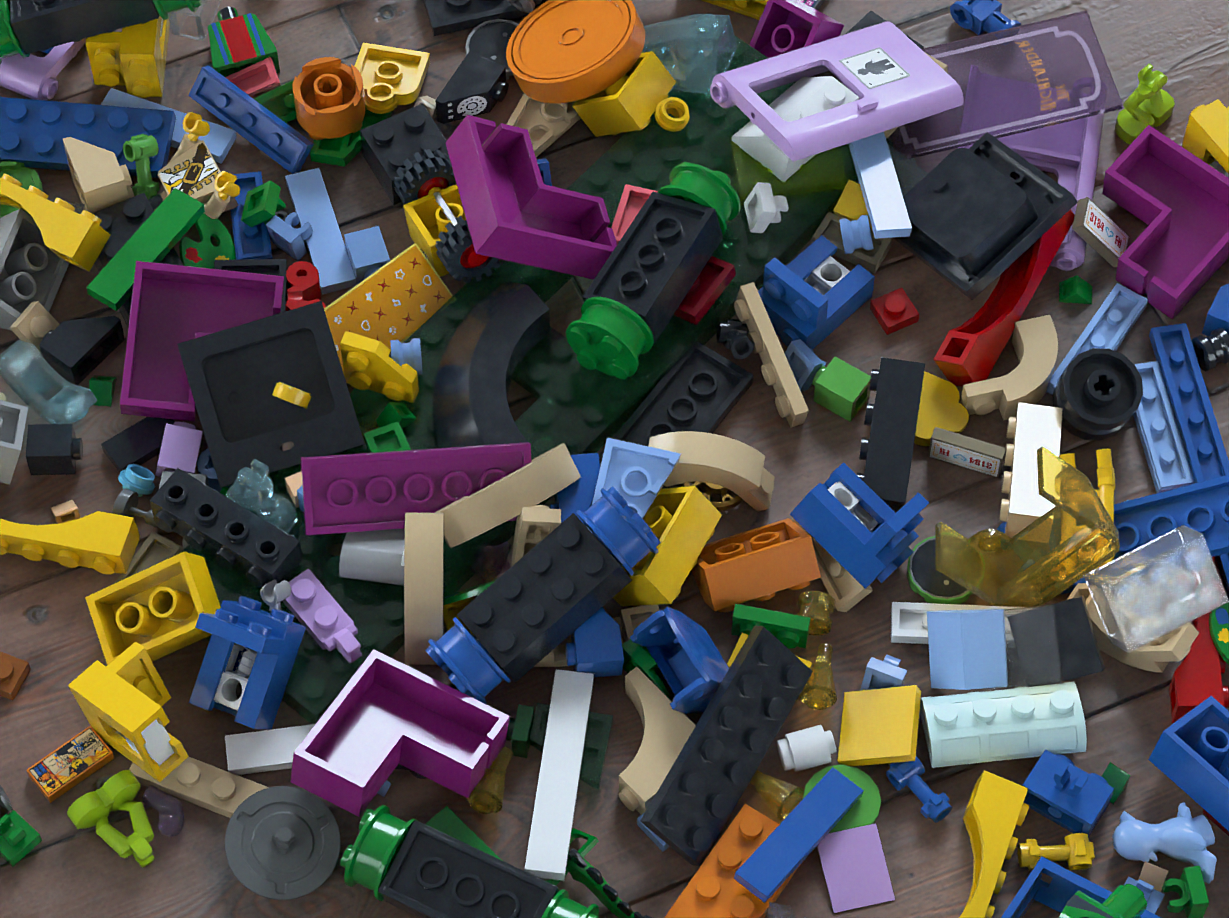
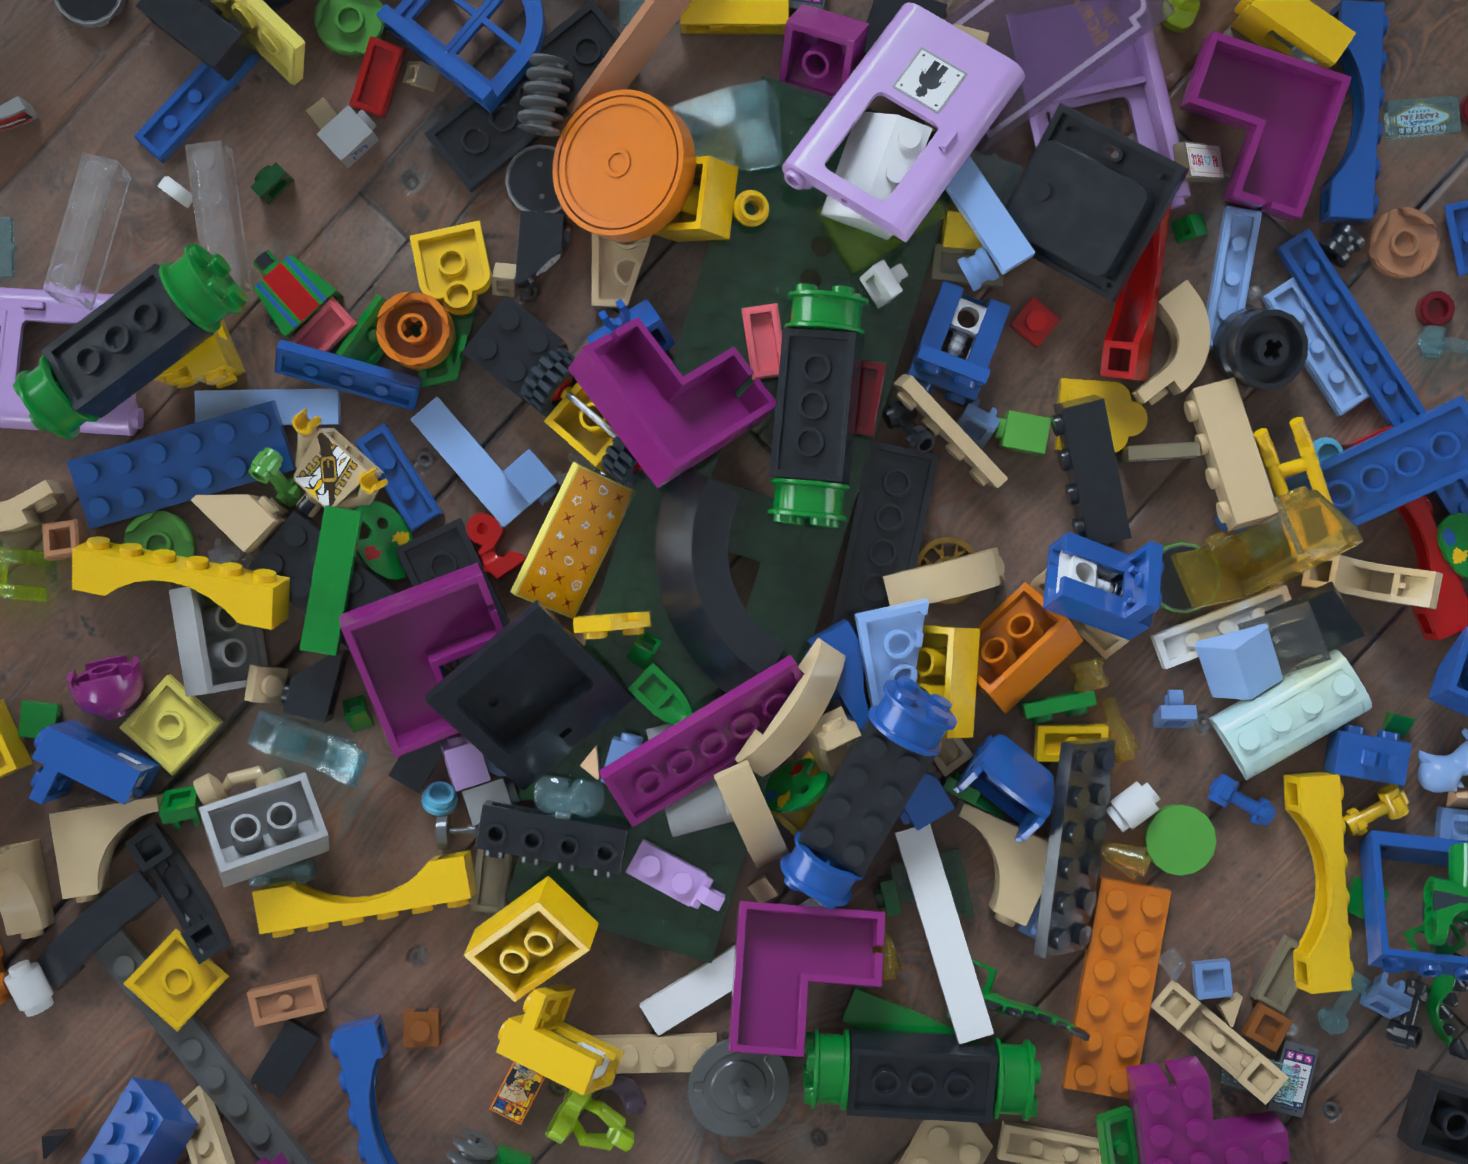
camera: 20 degrees left, 30 degrees up
(53, 449) = (349, 802): black brick -> none
(65, 512) = (390, 850): light nougat piece -> none
(229, 661) = (632, 950): blue brick -> none
(262, 204) = (408, 469): green tile -> none
(274, 593) = (628, 886): light grey hand -> none
(287, 237) = (446, 488): medium blue tile -> none
(292, 394) = (550, 691): yellow tile -> none
(407, 353) = (627, 590): medium blue wheel -> none
(798, 834) = (1163, 896): blue tile -> none
(855, 868) = (1214, 894): lavender sticker -> none
(879, 726) = (1189, 762): yellow tile -> none
(1156, 588) = (1398, 553): clear brick -> none

